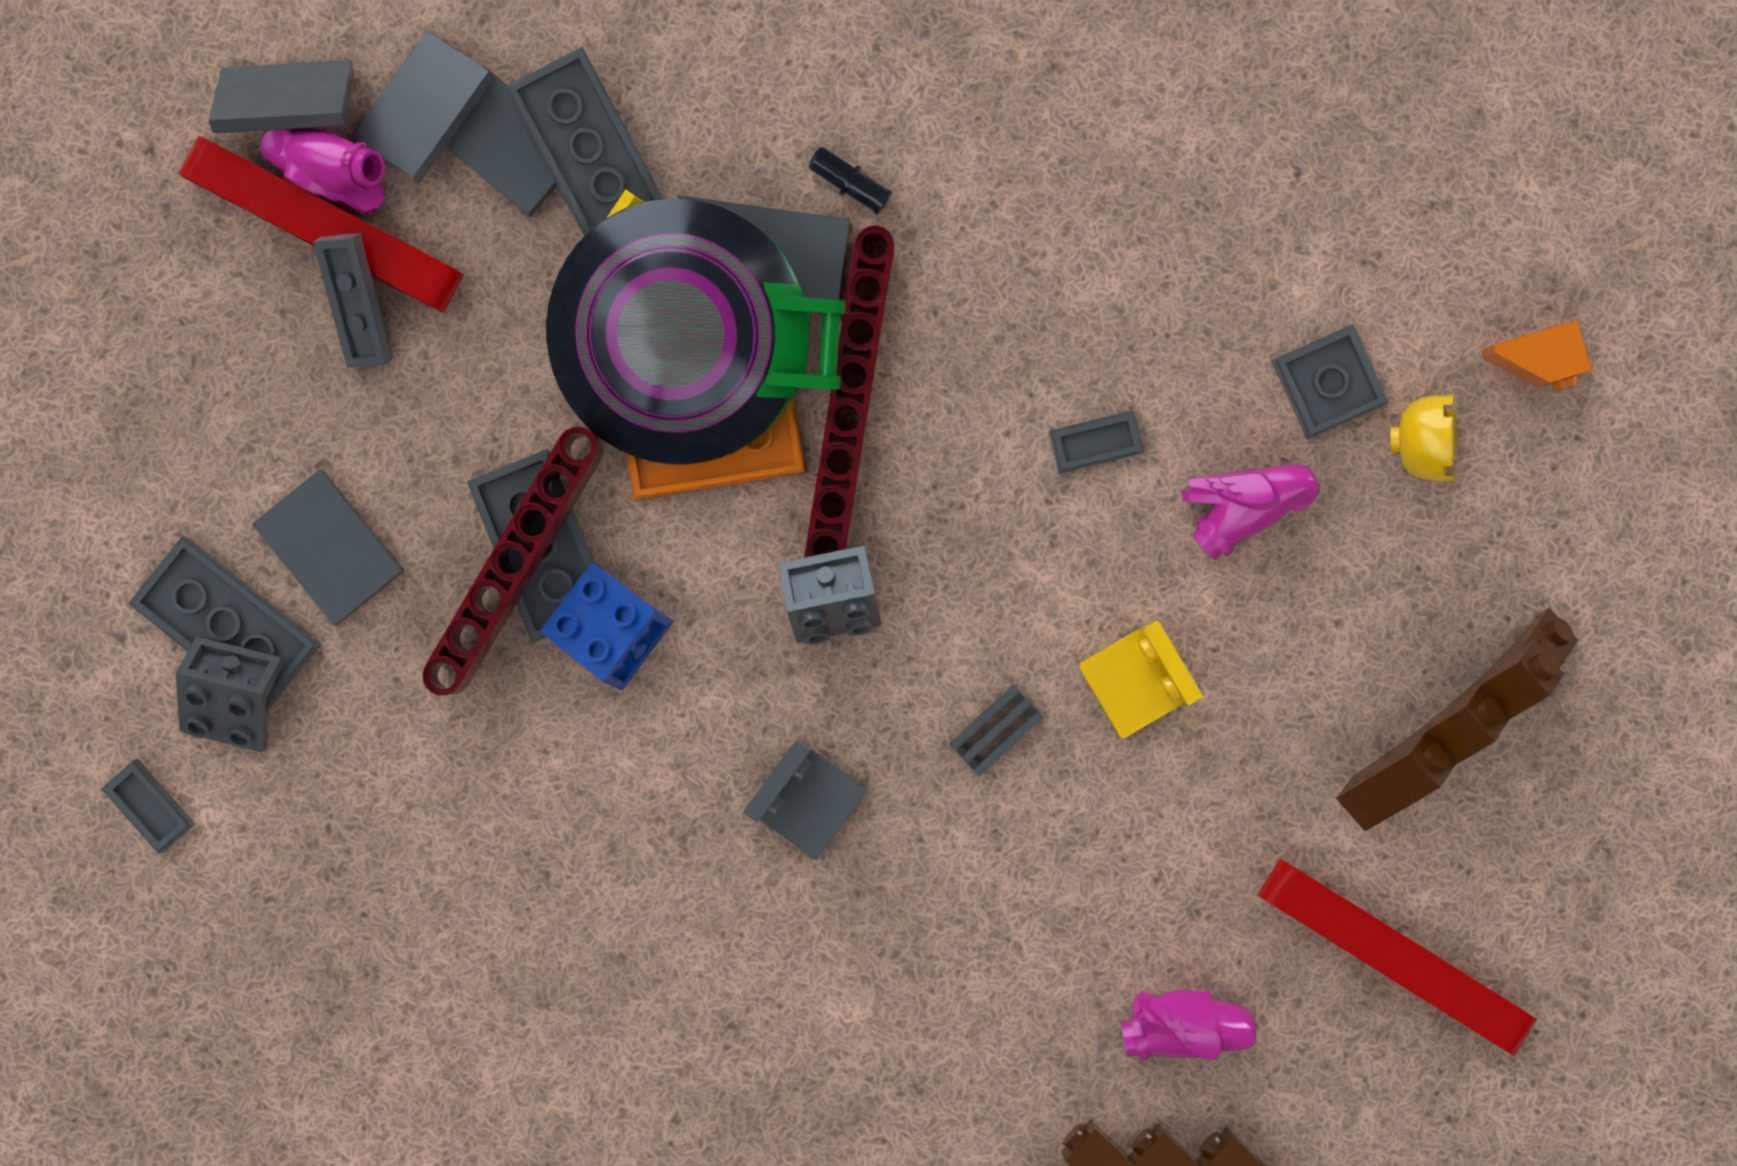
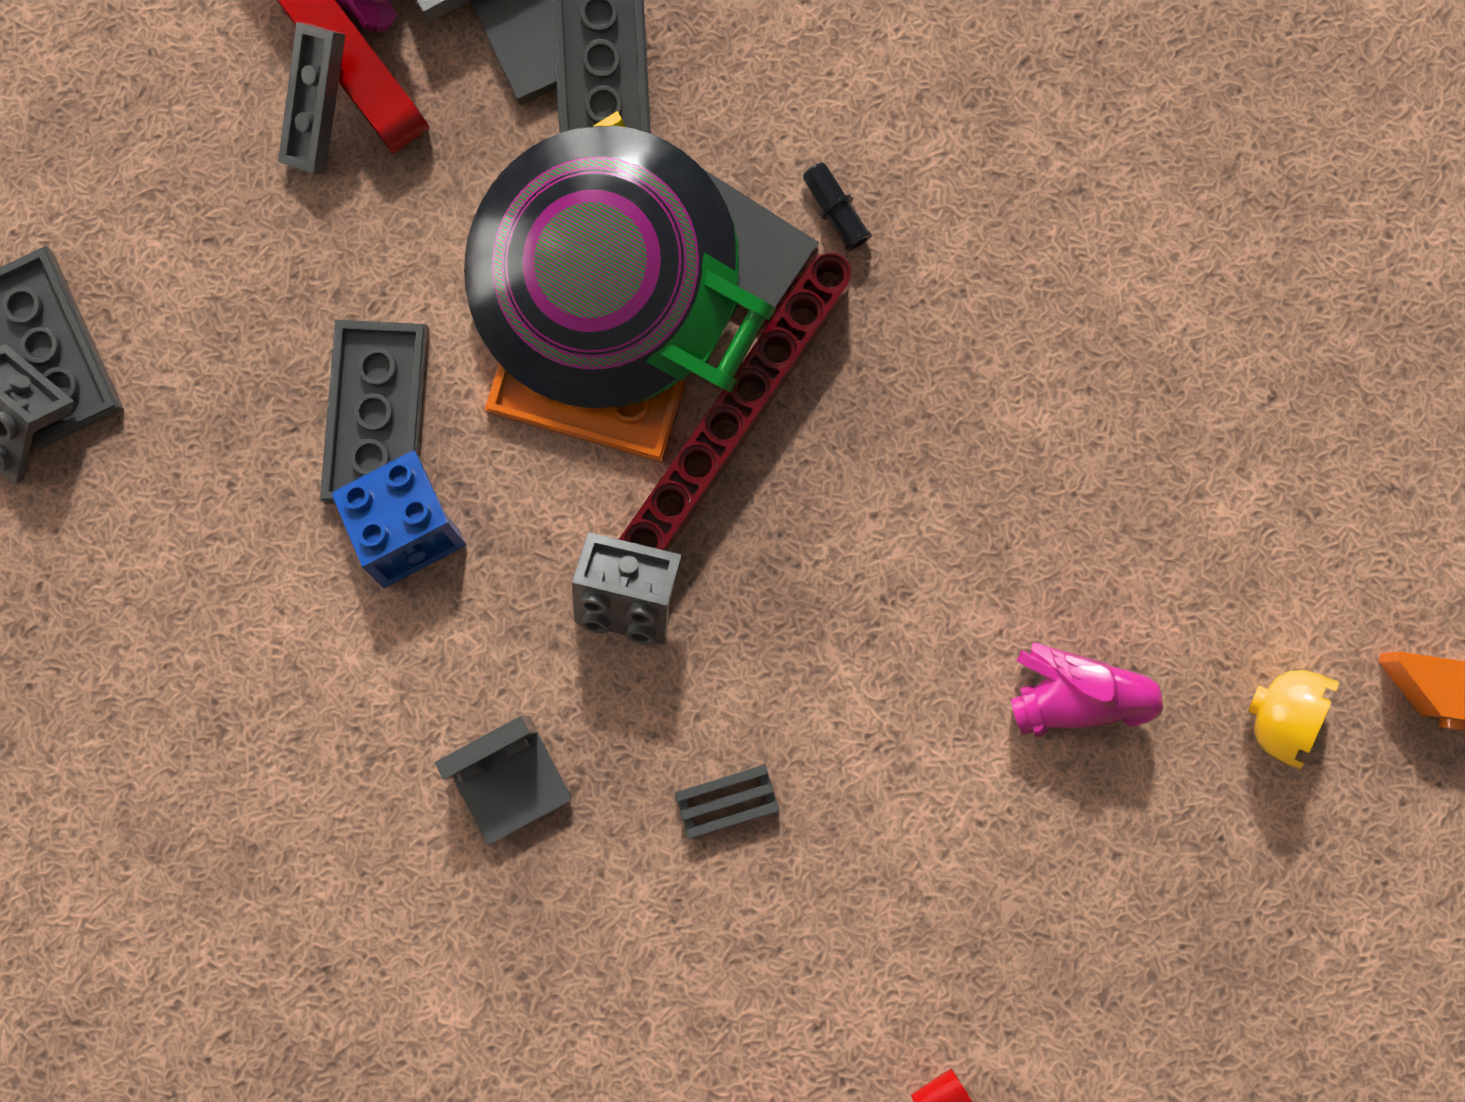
camera: 30 degrees right, 5 degrees down
(328, 547) = (175, 321): dark grey tile -> none
(494, 573) = (314, 413): dark red beam -> none
(1096, 441) = (957, 564): dark grey tile -> none
(1139, 679) = (893, 818): yellow bracket -> none
(1330, 381) = (1215, 613): dark grey tile -> none
(1467, 725) = (1218, 1025): reddish brown arch -> none

